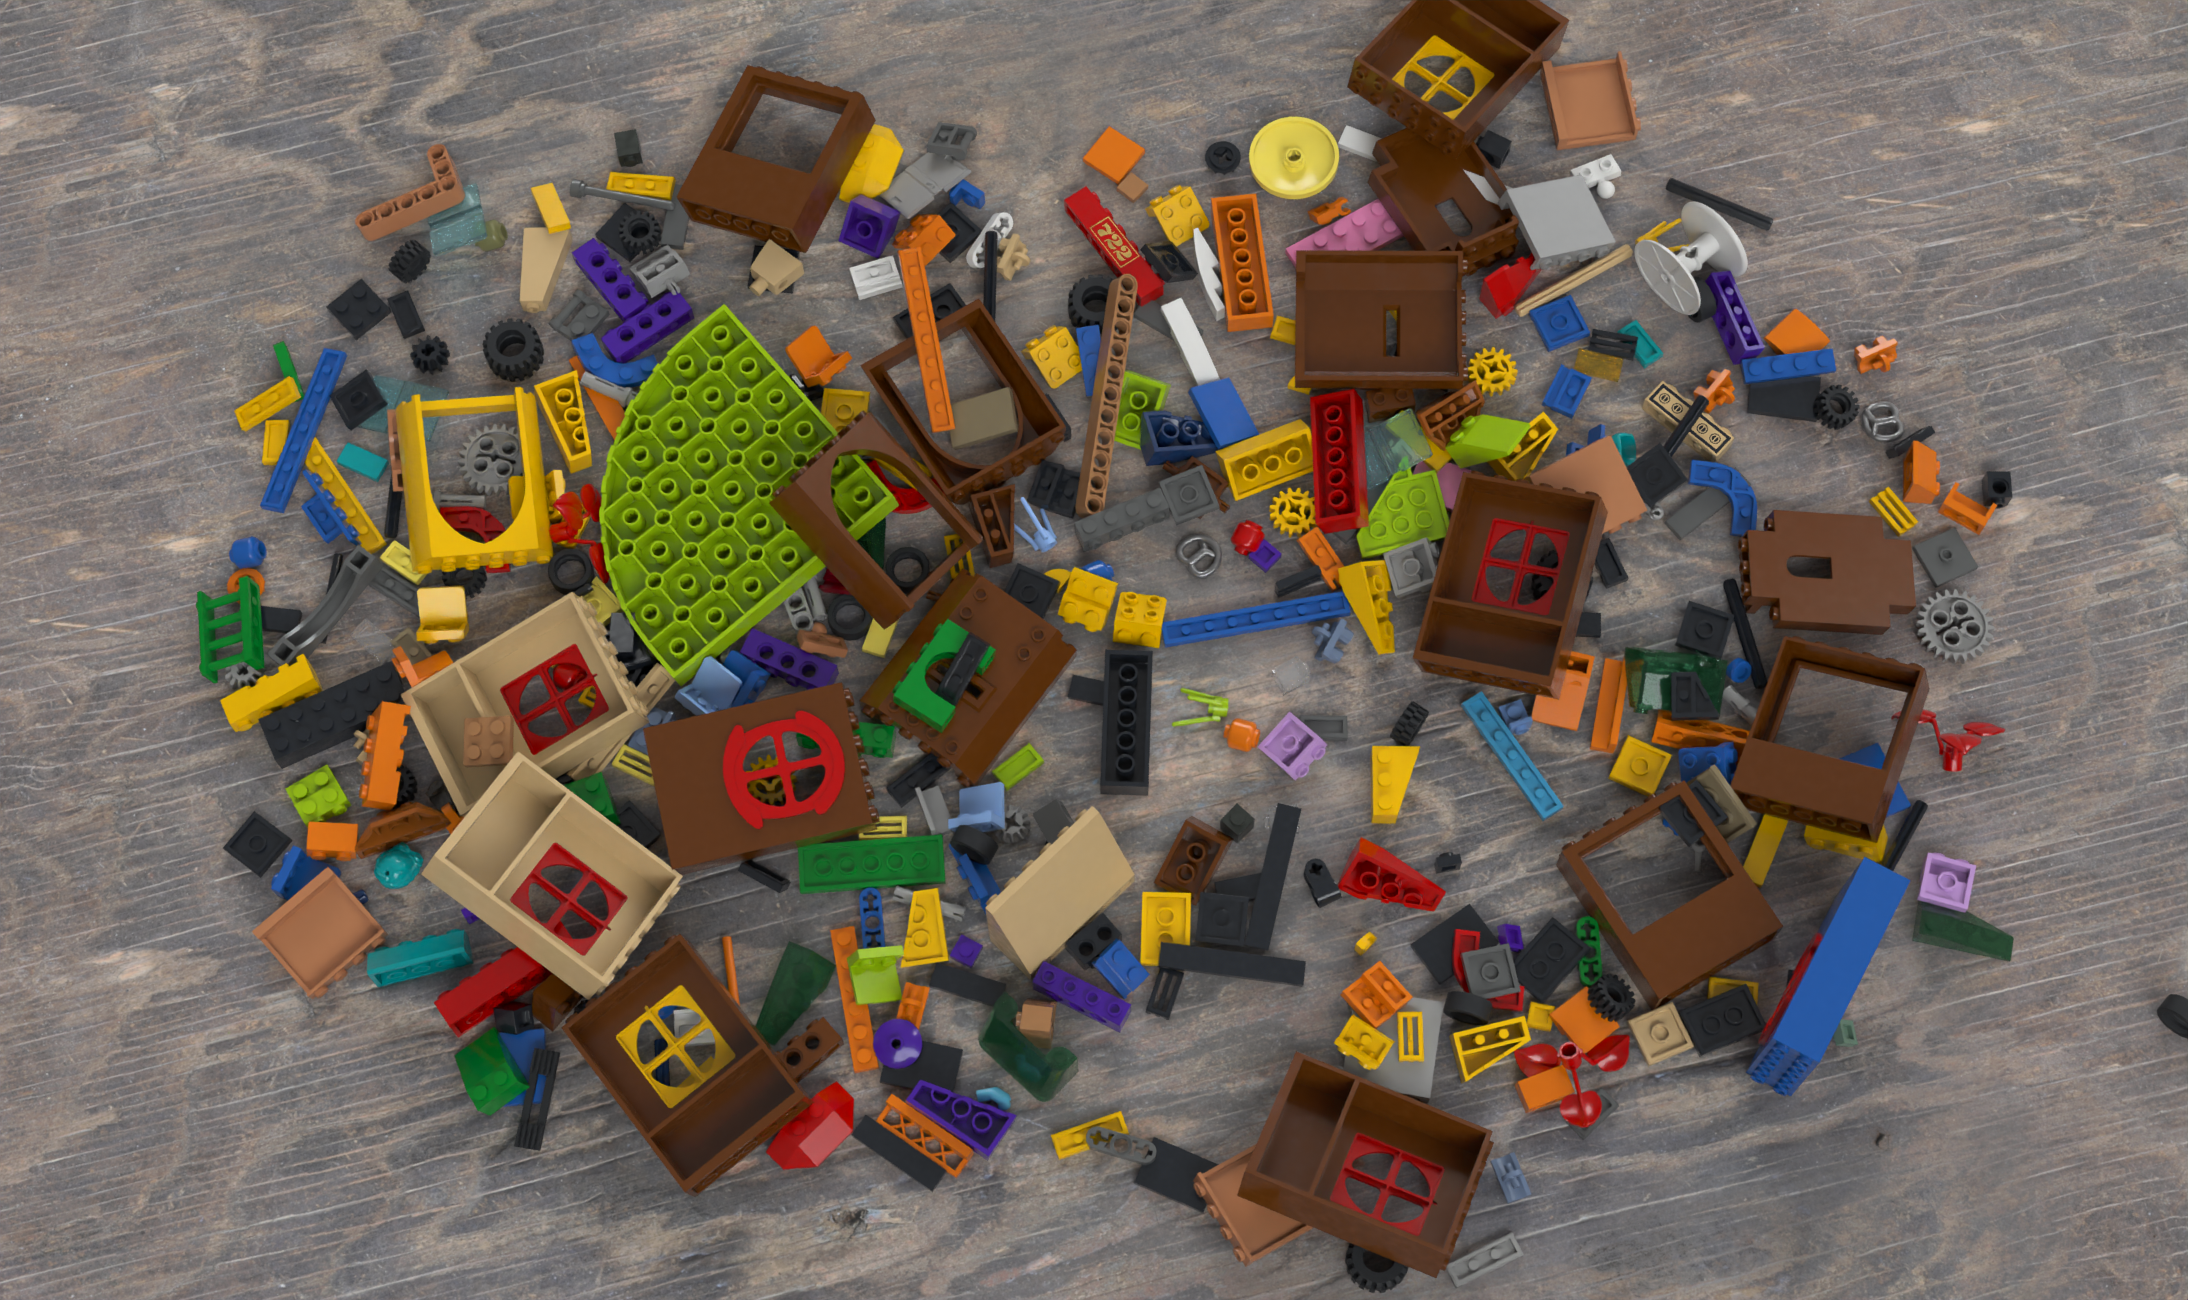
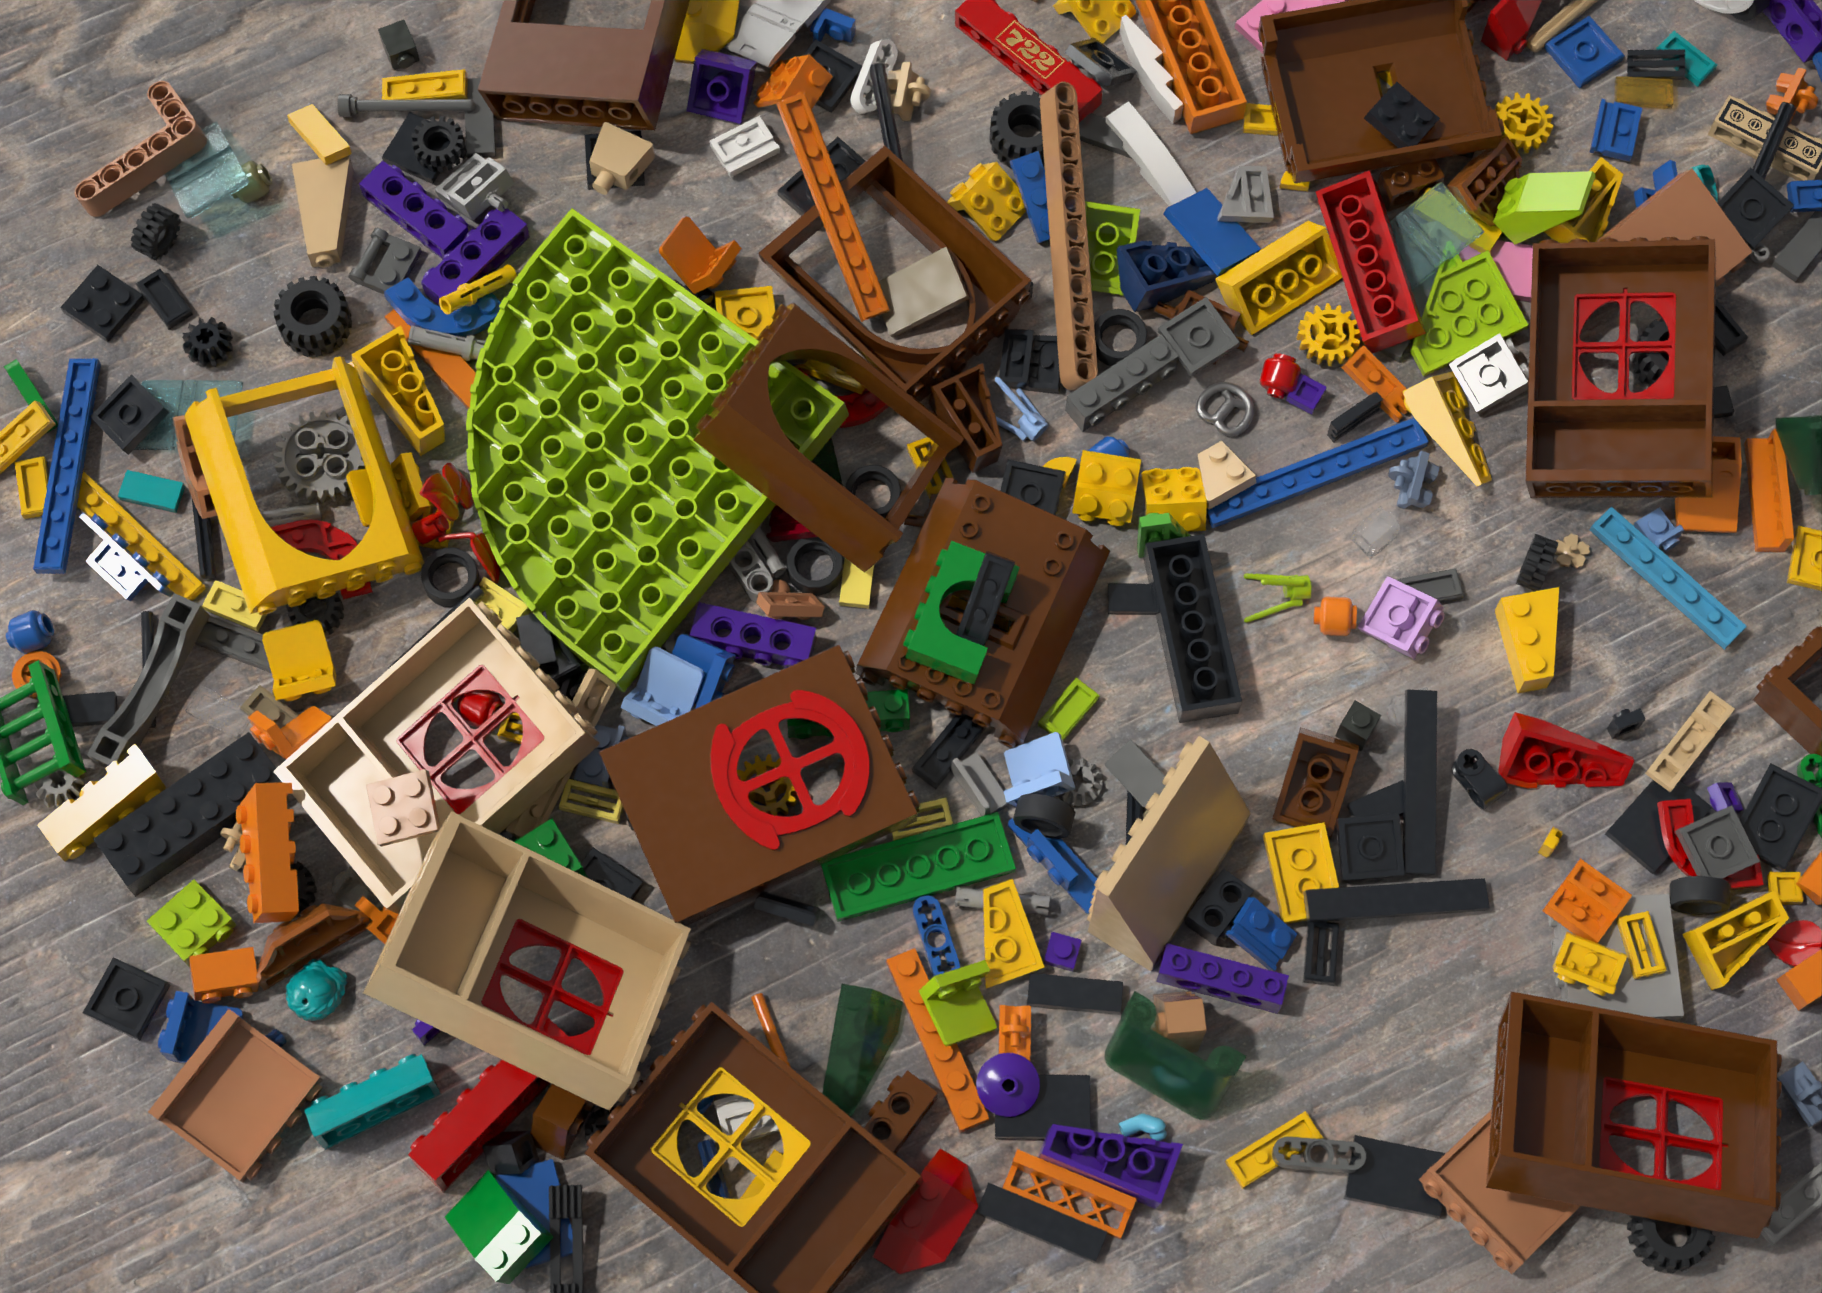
camera: 15 degrees left, 0 degrees up
(642, 352) = (454, 301): none -> yellow pin
(1119, 639) = (1156, 528): none -> bright green wing
(1128, 467) = (1118, 317): none -> black tyre
(1181, 607) = (1223, 474): none -> tan wing
(1259, 391) = (1248, 197): none -> light grey wing
(1392, 350) = (1401, 117): none -> black plate
(1442, 720) = (1571, 552): none -> tan plant
(1494, 888) = (1690, 741): none -> tan slope

